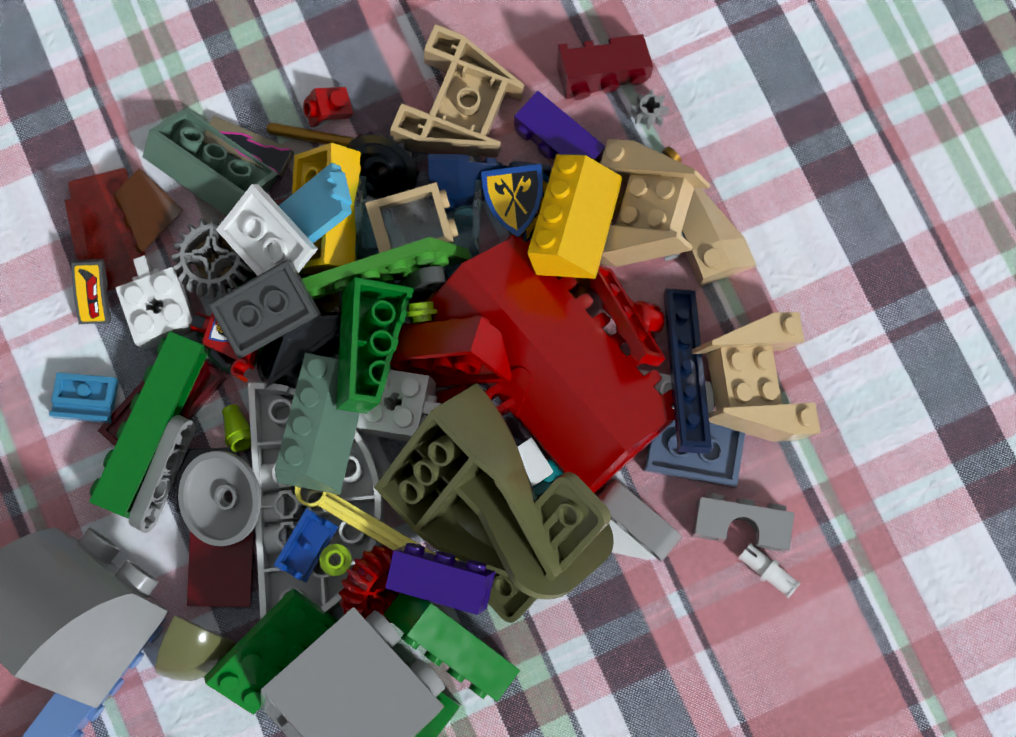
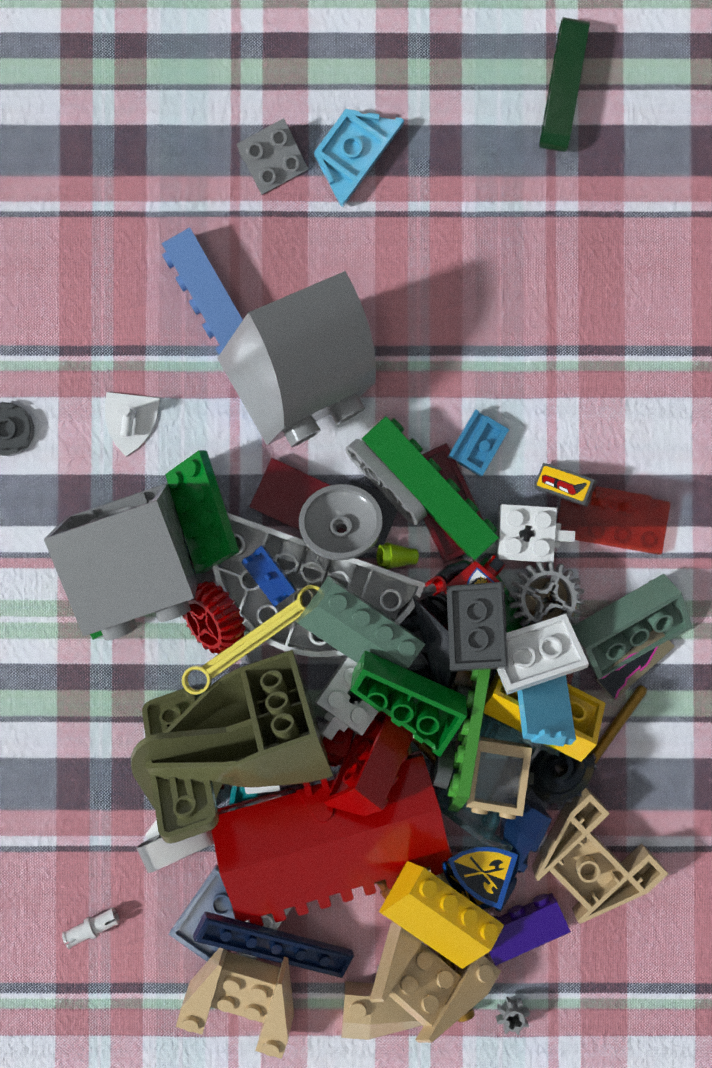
camera: 110 degrees right, 10 degrees up
(145, 209) = (616, 557): reddish brown slope -> none
(190, 650) = (232, 450): olive brick -> none
(327, 105) = (640, 745): red bracket -> none
(346, 560) = (256, 591): lime plate -> none
(421, 311) = (417, 754): lime plate -> none
(440, 578) = (188, 675): dark purple brick -> none
(452, 644) = (144, 653): green wedge -> none
(603, 66) = (568, 995): dark red wedge -> none
(633, 319) = (335, 921): red plate -> none
(770, 524) = (124, 944): light grey arch -> none

